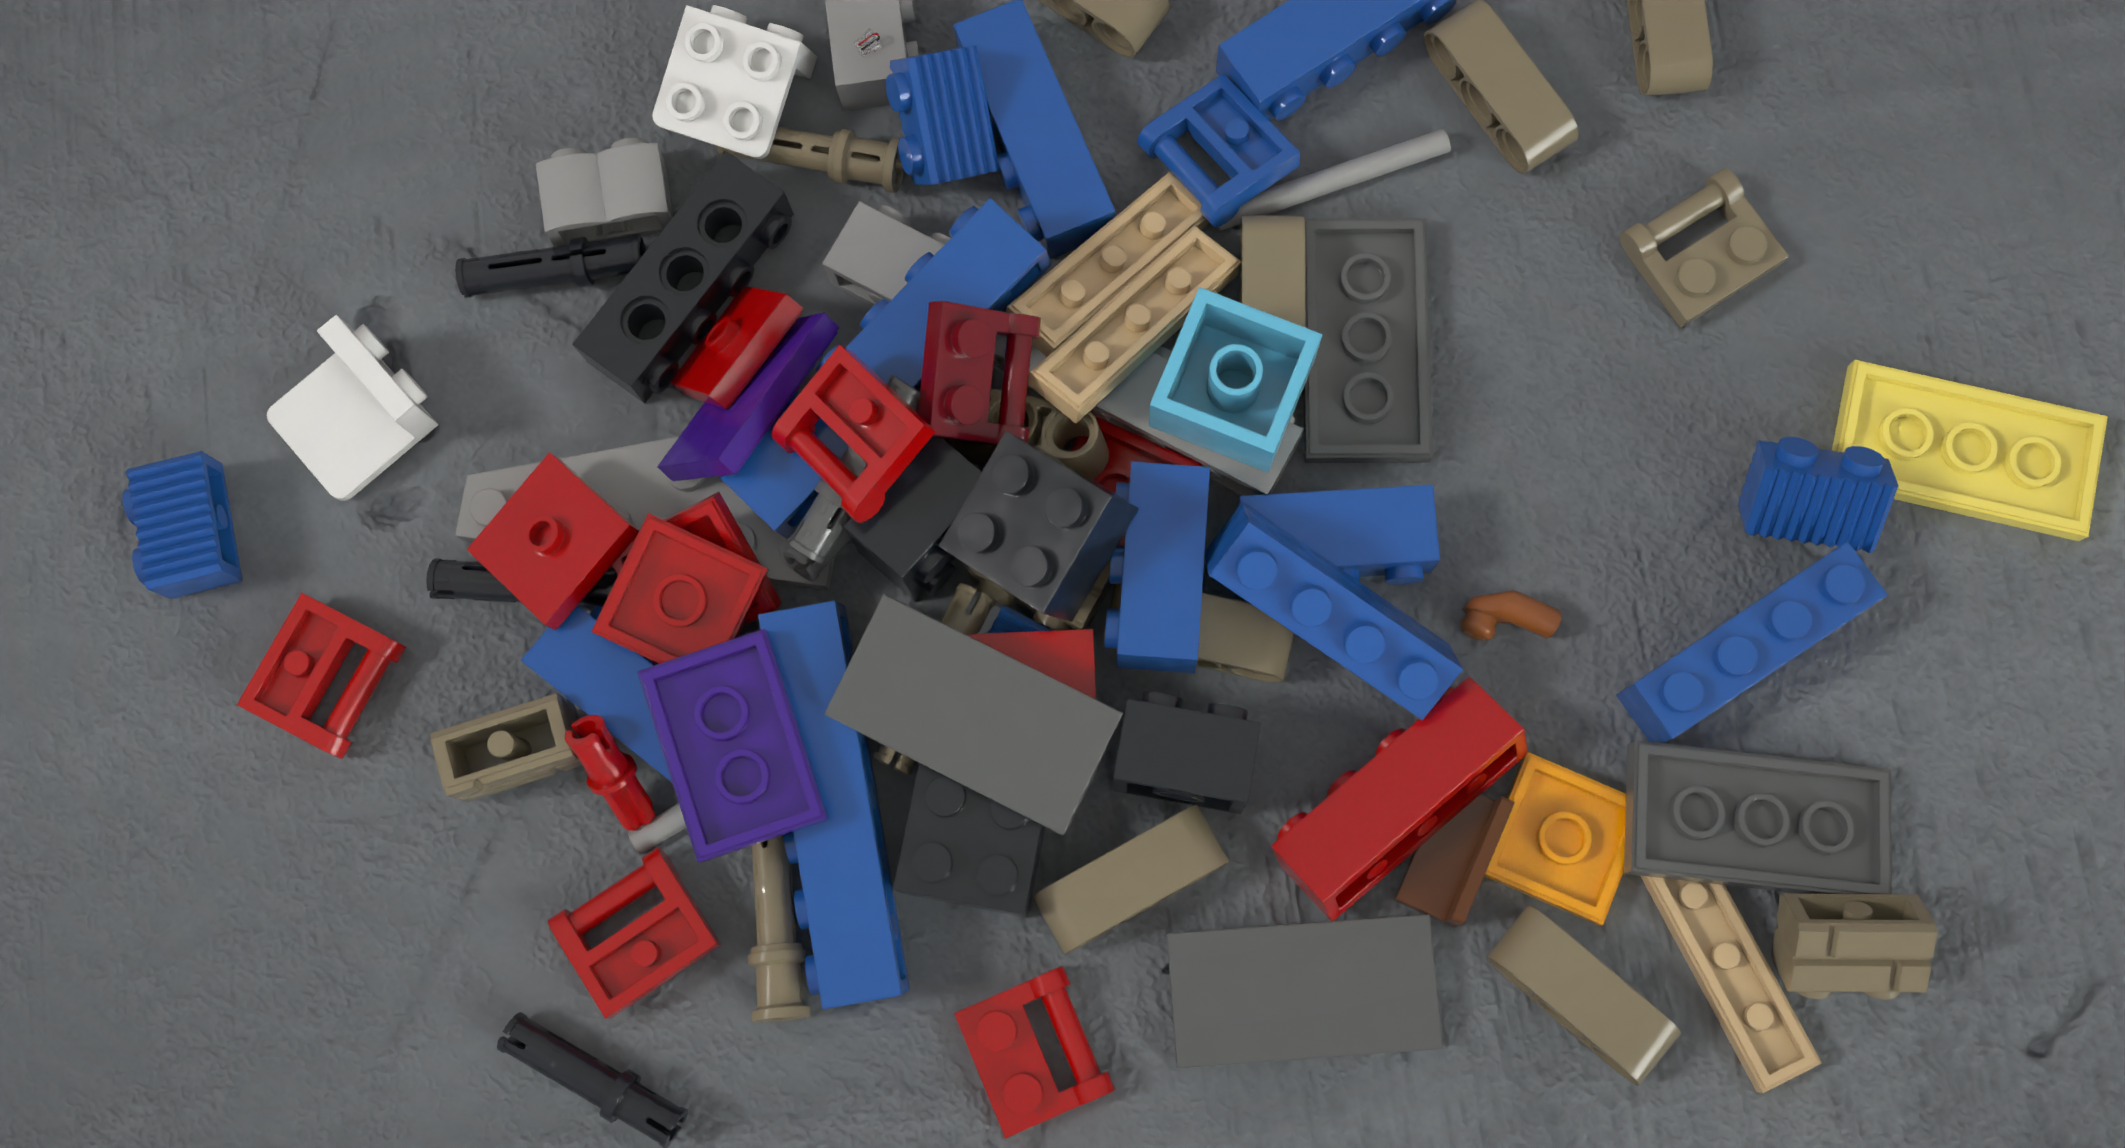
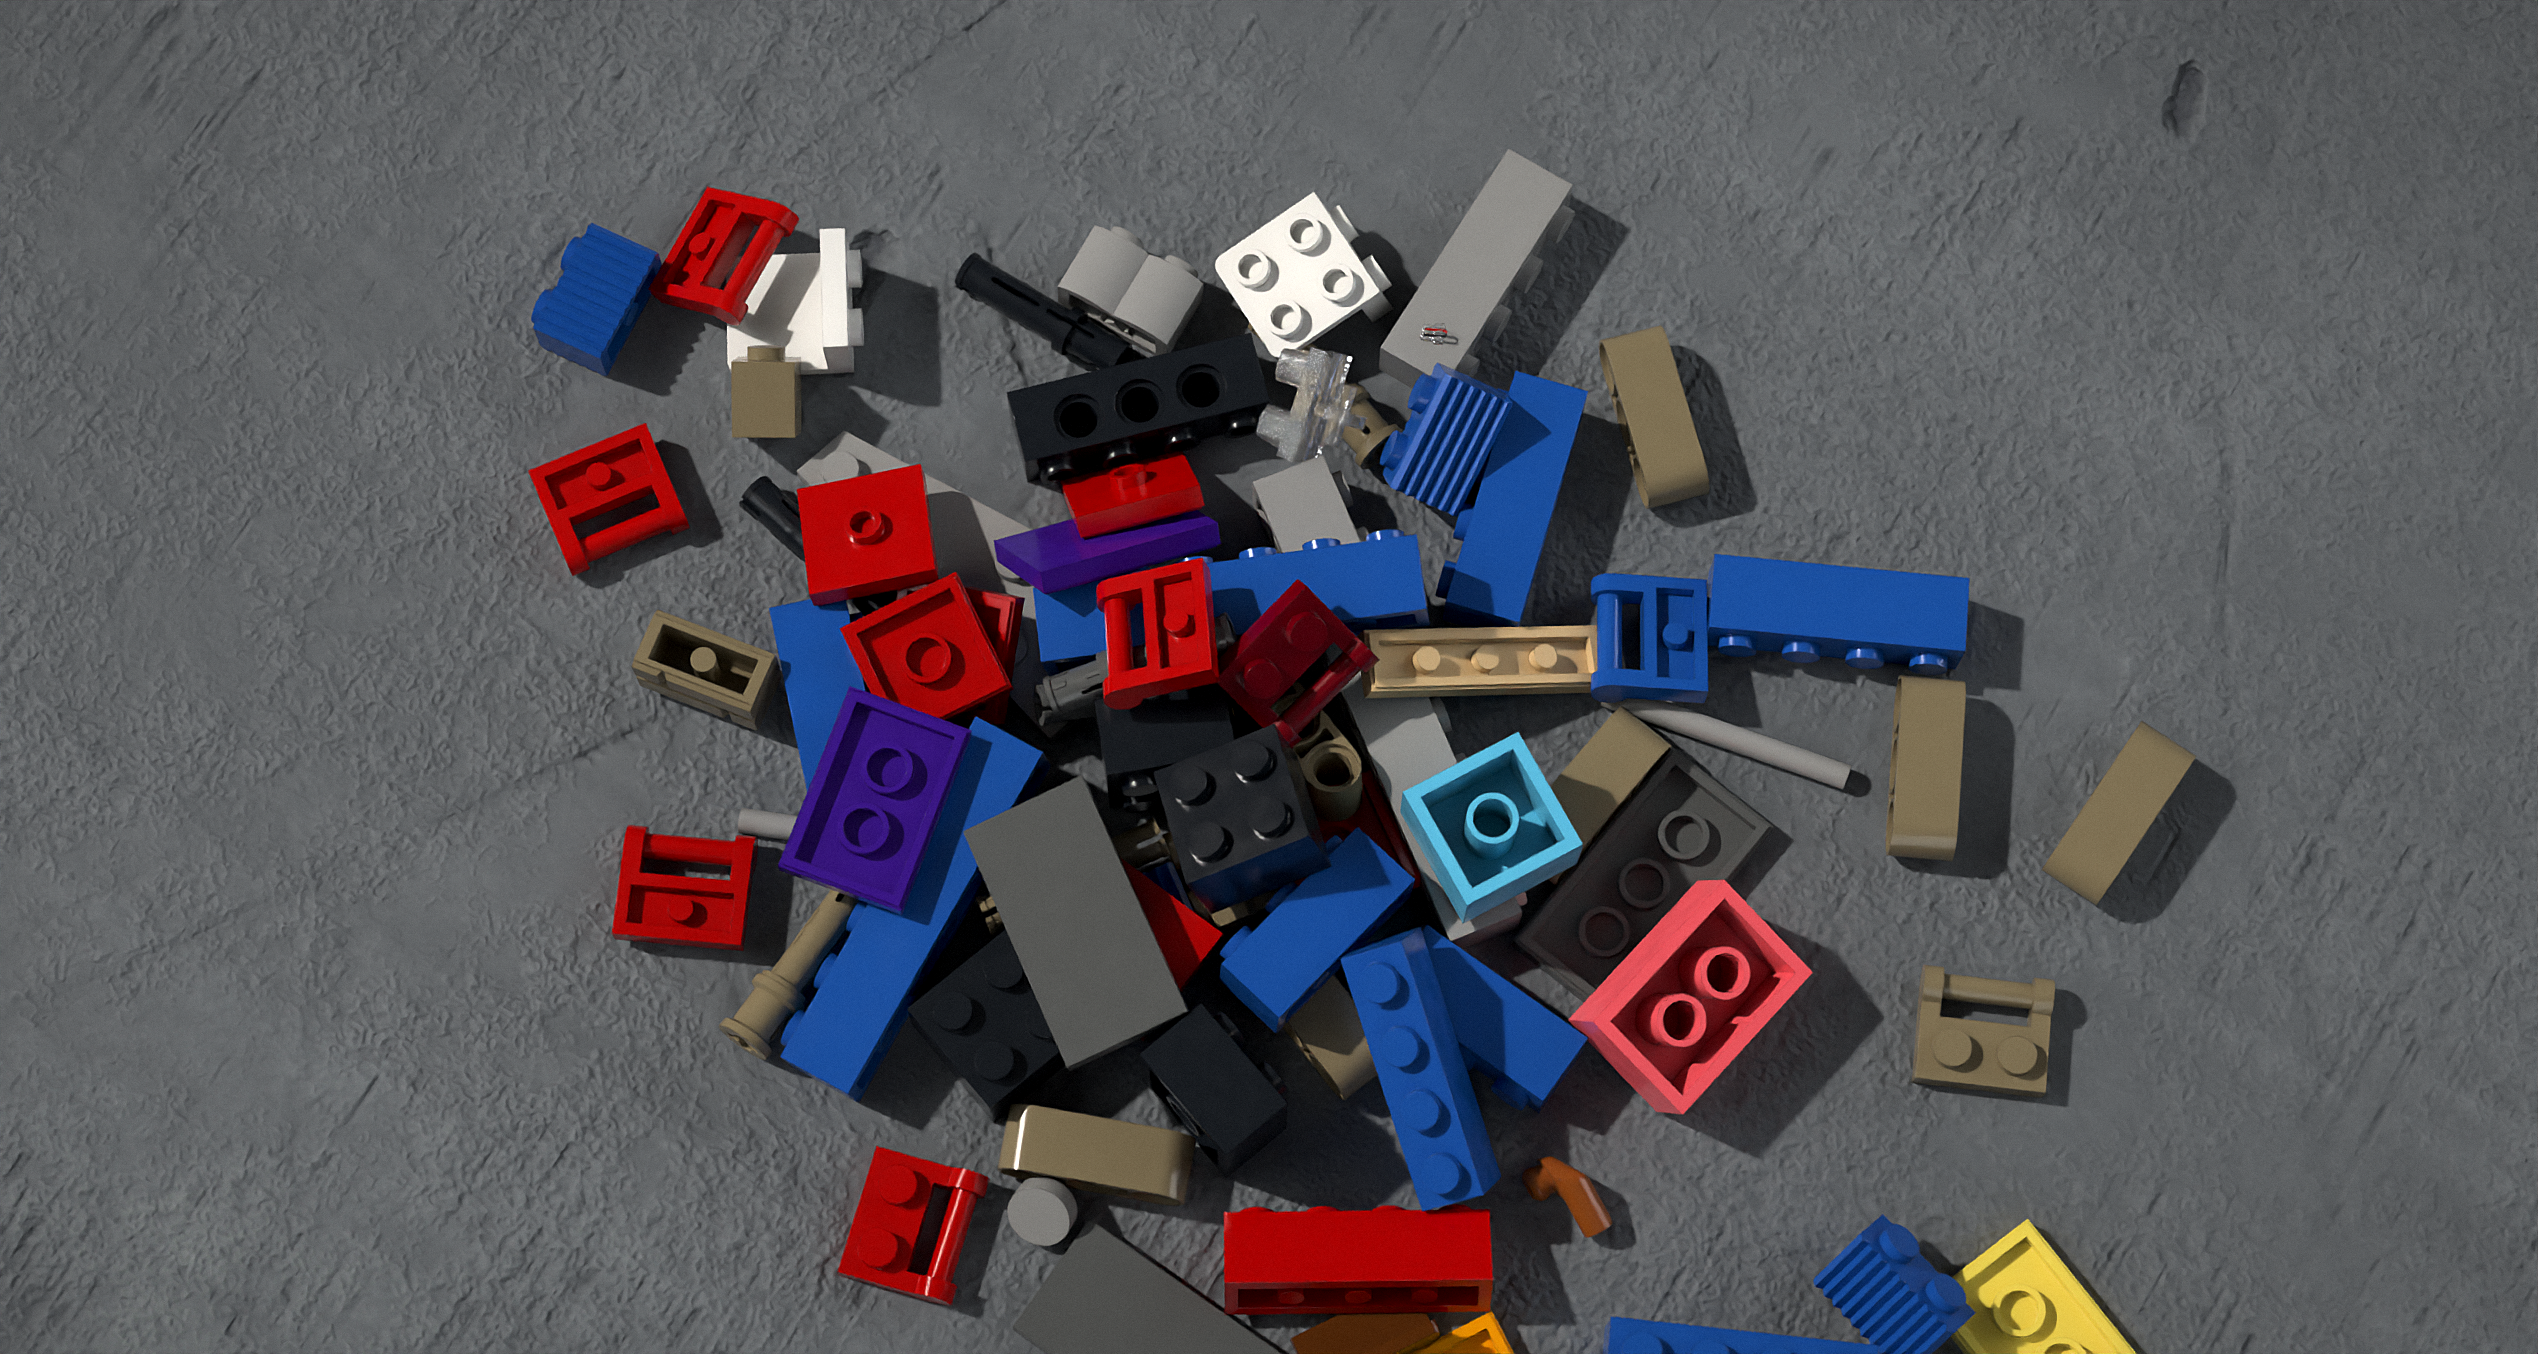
camera: 30 degrees right, 5 degrees down
(242, 412) = (709, 248): none -> red plate
(380, 494) = (766, 393): none -> dark tan brick
(610, 772) = (767, 749): red axle -> none
(614, 1092) = (572, 995): black pin -> none
(829, 166) = (1319, 408): none -> clear hips
(1125, 958) = (1042, 1211): none -> light grey tile
(1132, 325) = (1456, 722): tan tile -> none
(1482, 390) = (1690, 996): none -> coral brick

